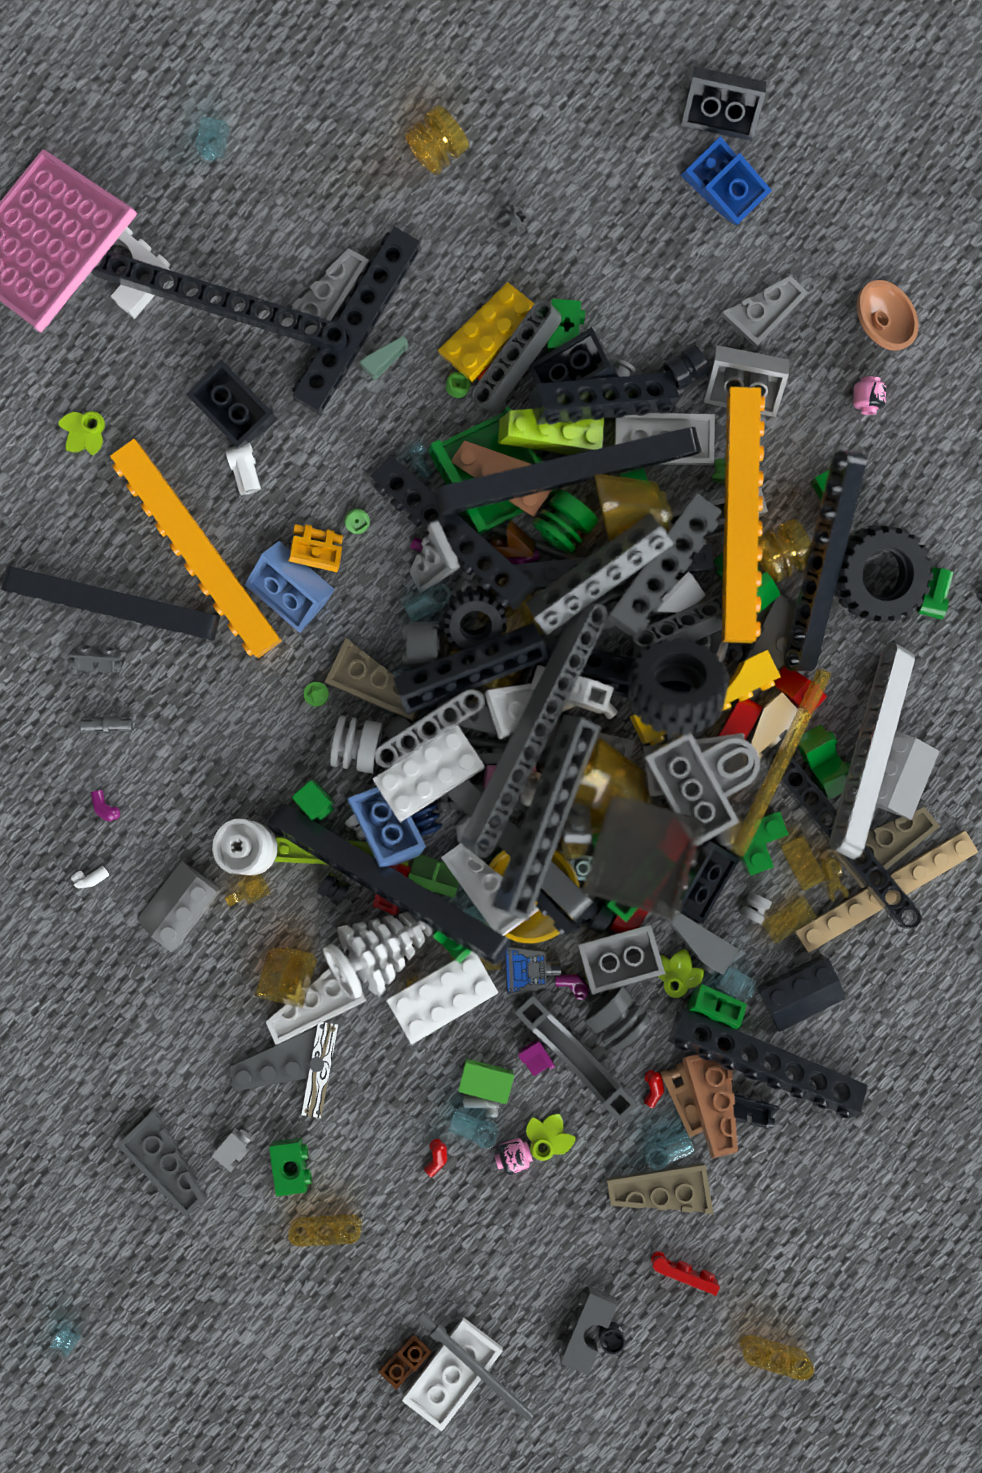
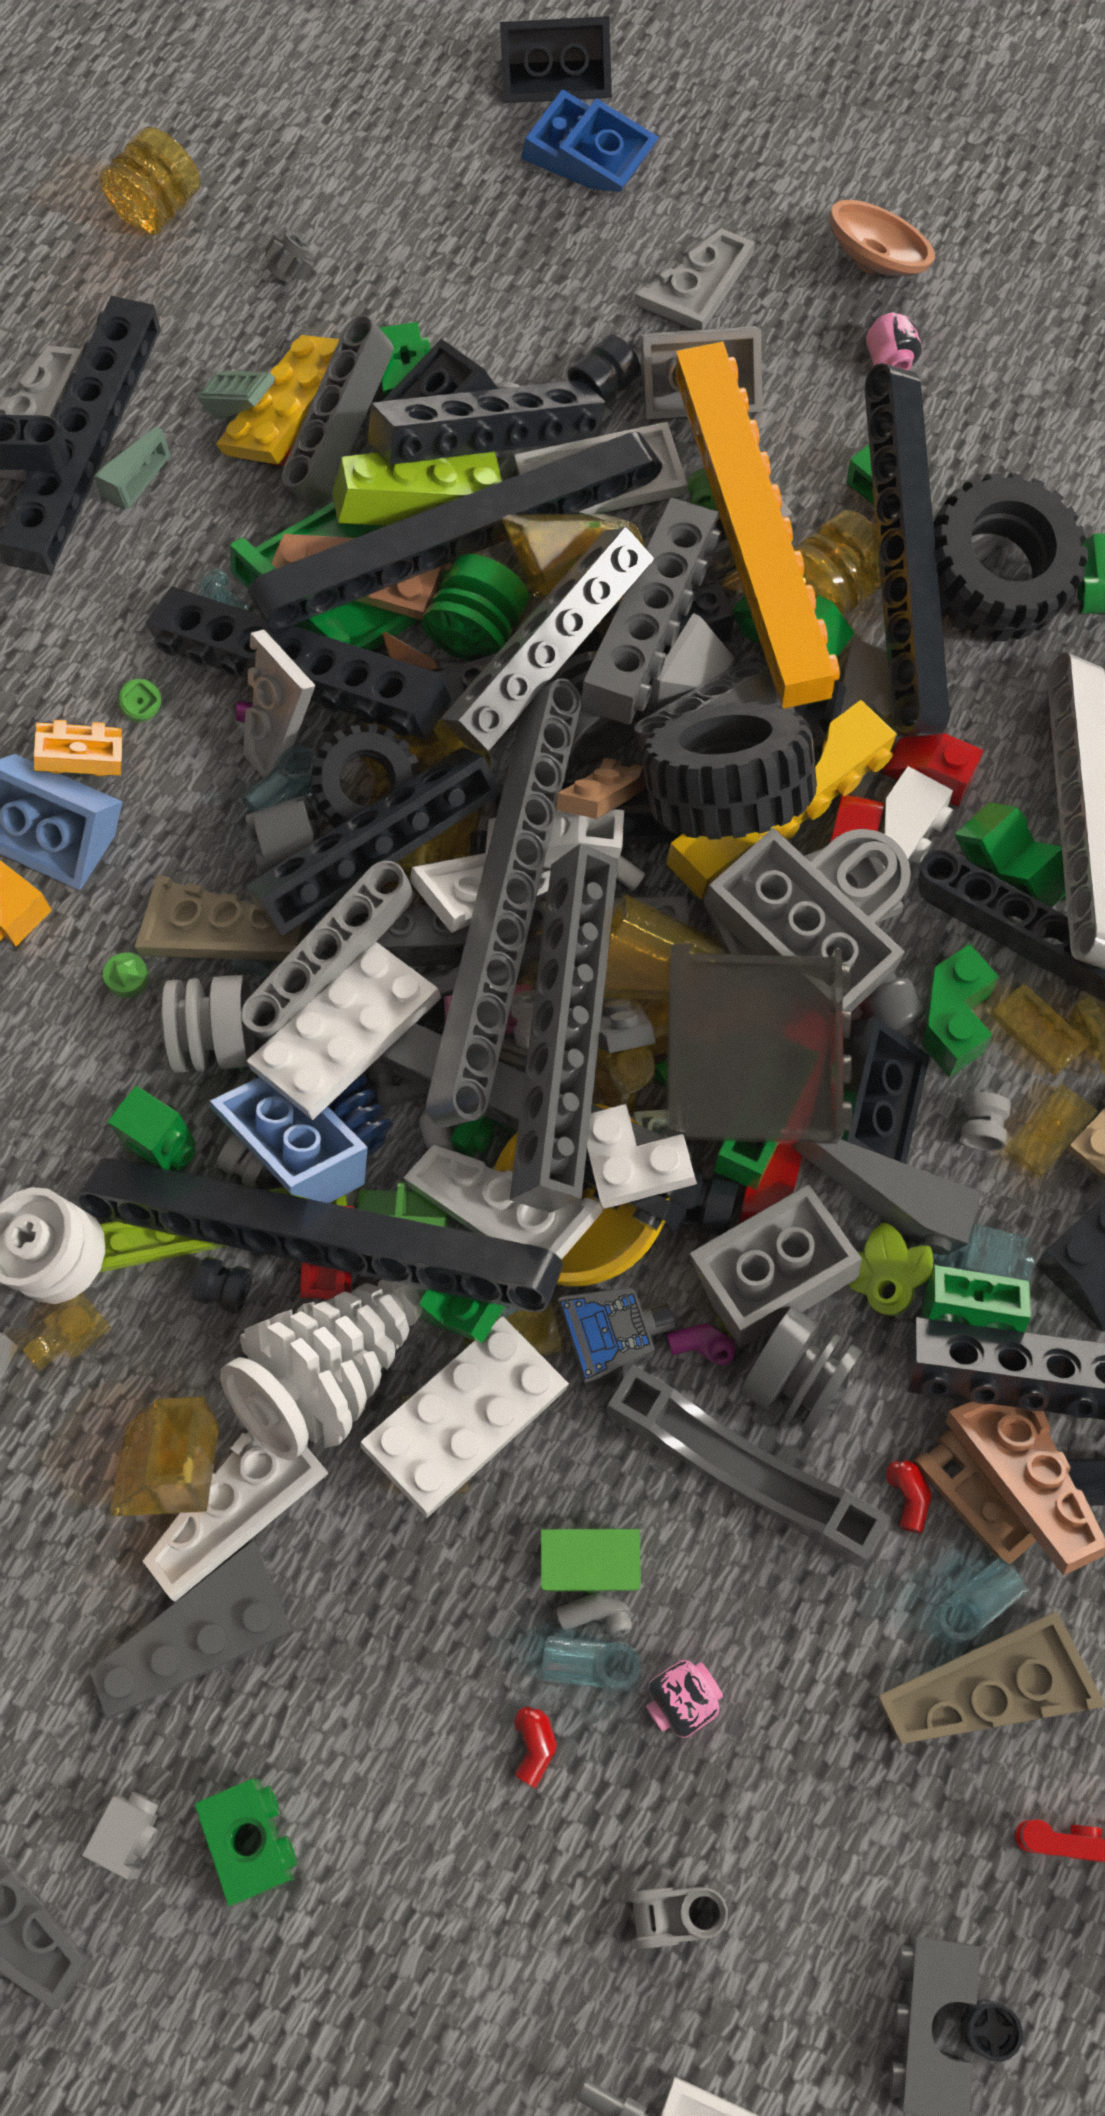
camera: 10 degrees left, 20 degrees down
(316, 1238) = (320, 1959): clear yellow beam -> none
(318, 1081) = (266, 1650): sticker -> none
(455, 318) = (234, 392): none -> sand green slope
(457, 385) = (258, 480): bright green tile -> none
(481, 1252) = (672, 1916): none -> light grey piece
(536, 1057) = (673, 1494): magenta panel -> none
(550, 1133) = (741, 1637): lime plate -> none
(557, 906) = (632, 1171): none -> white plate
(605, 671) = (602, 789): none -> medium nougat plate
(781, 761) = (942, 862): clear yellow tile -> none

